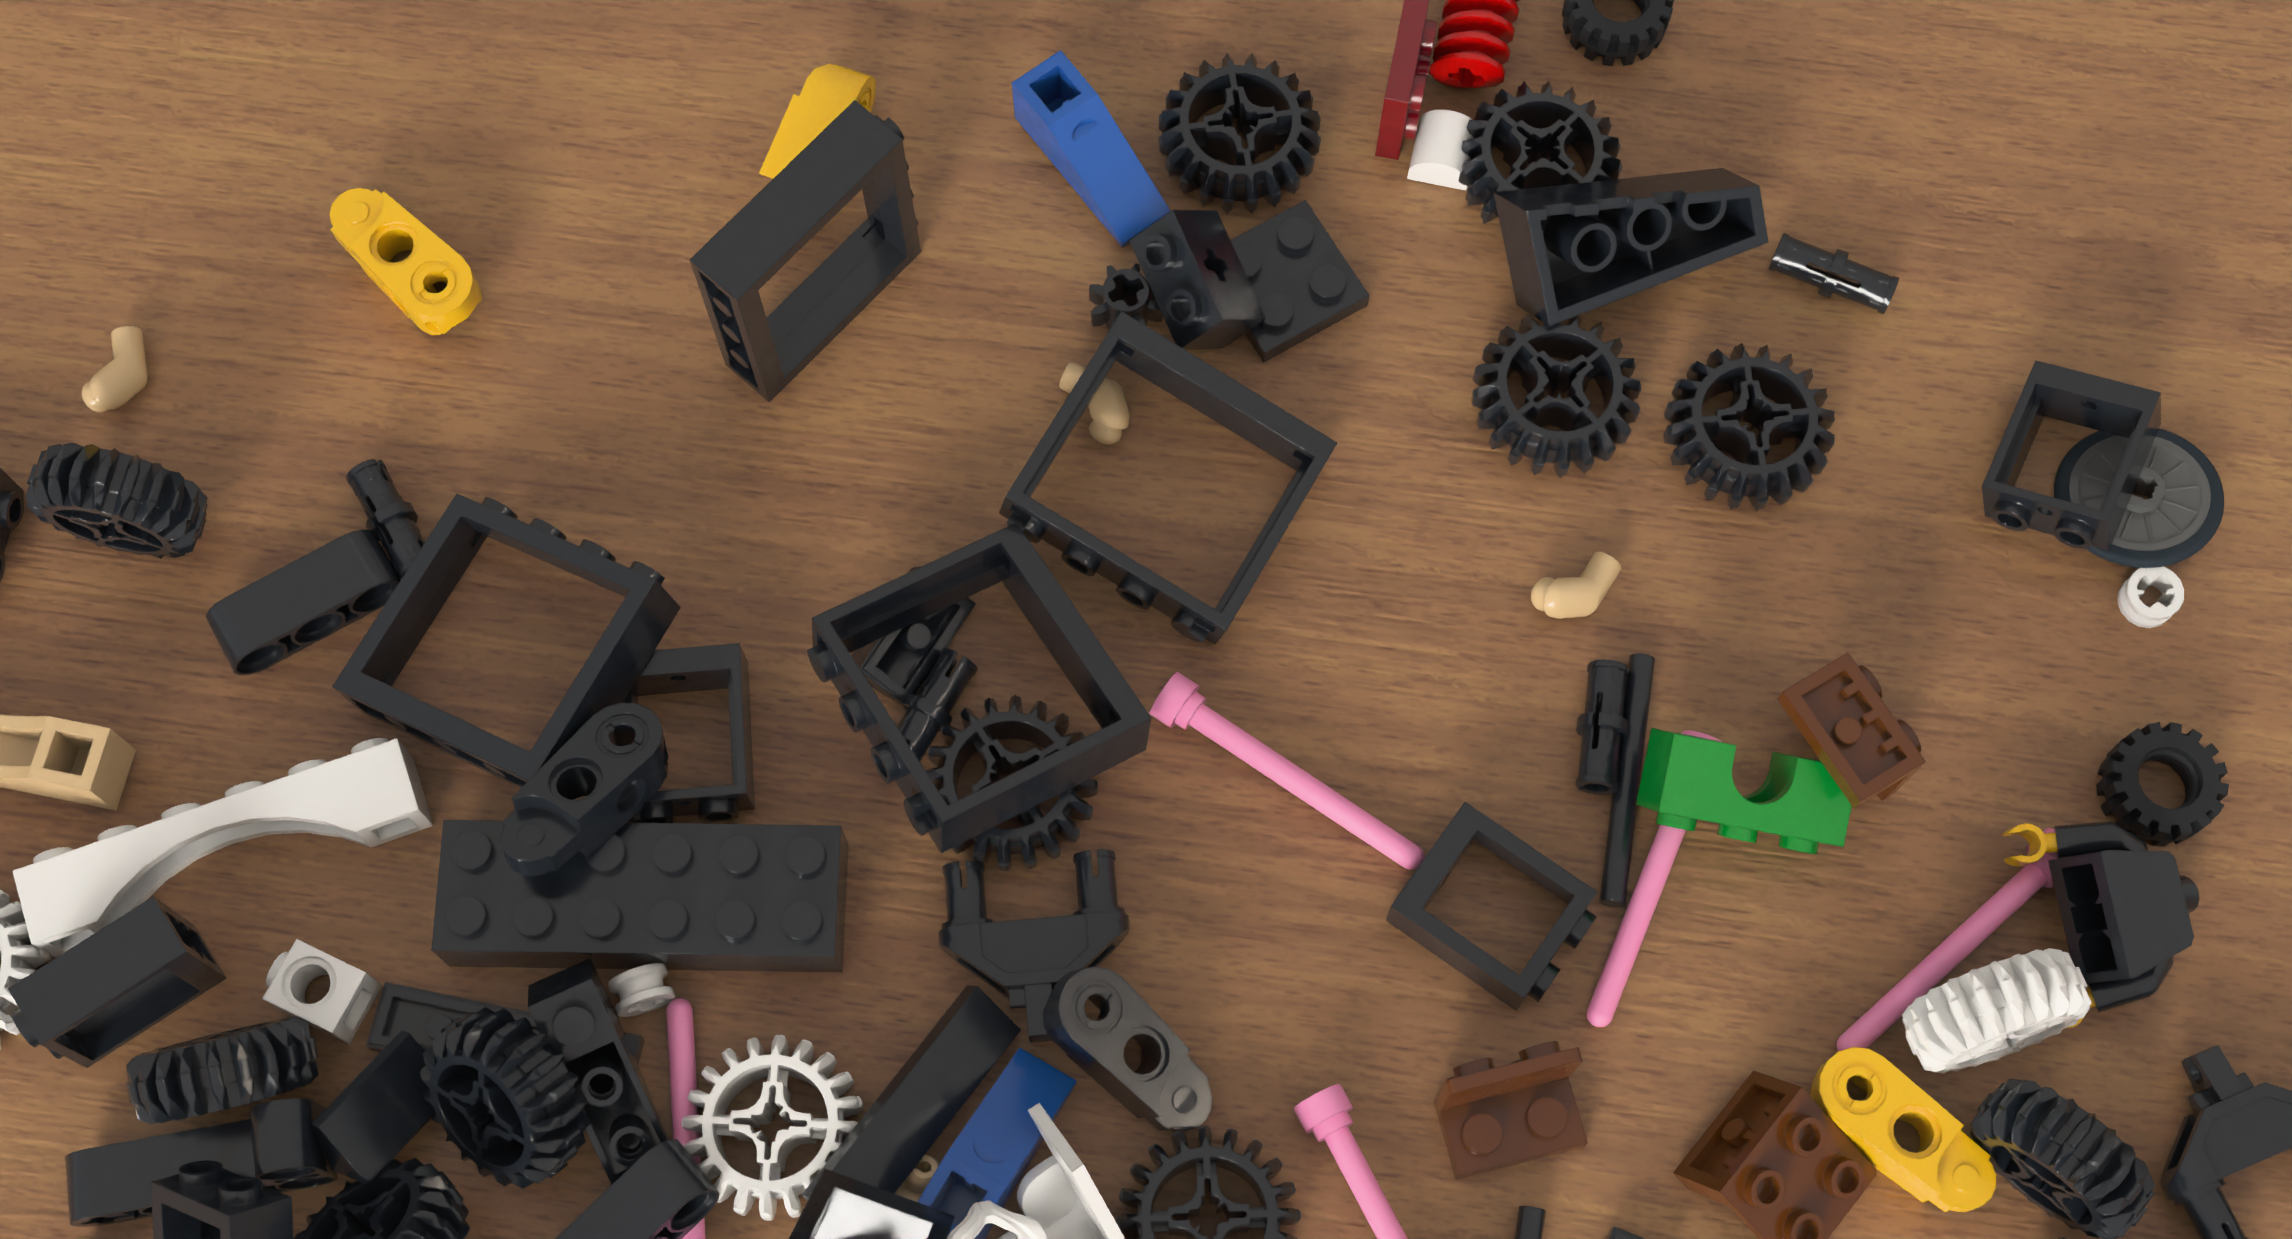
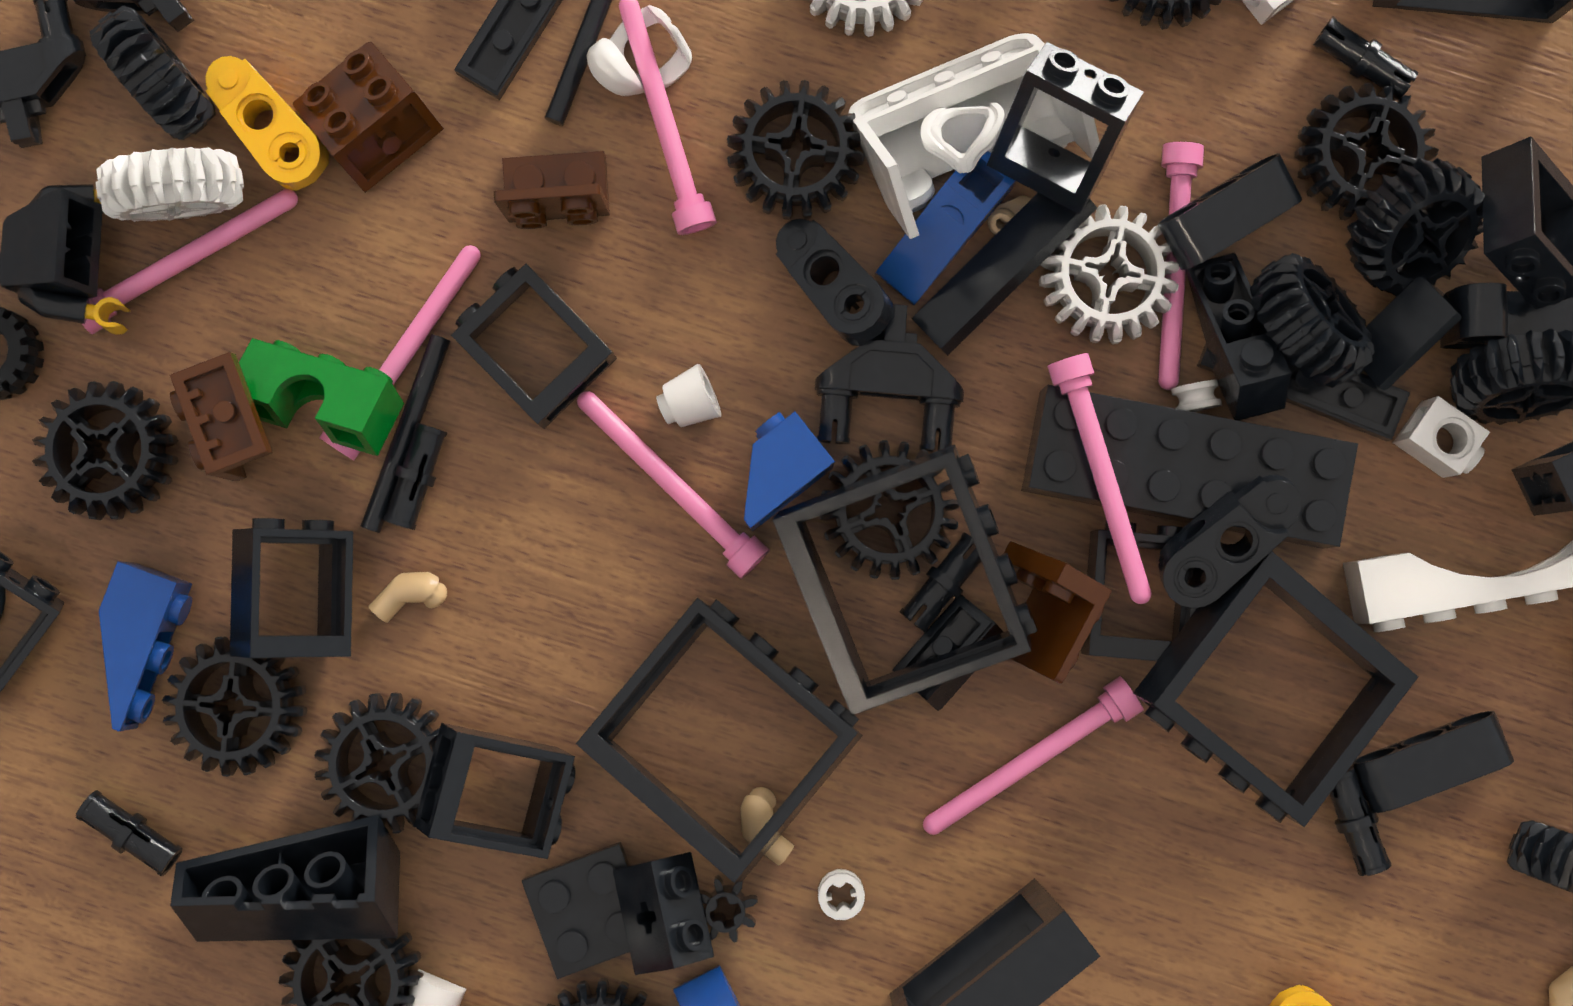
camera: 170 degrees left, 15 degrees up
(702, 602) = (1113, 705): none -> bright pink piece
(782, 695) = (1063, 608): none -> reddish brown bracket
(803, 959) = (1074, 379): none -> bright pink piece
(1001, 359) = (843, 910): none -> white bush
(1147, 799) = (782, 467): none -> blue slope
(1283, 876) = (689, 398): none -> white hat
(1477, 381) = (447, 779): none -> black window
(1690, 497) = (334, 591): none -> black window
(1889, 491) = (136, 636): none -> blue slope
(2007, 699) = (74, 476): none -> black gear

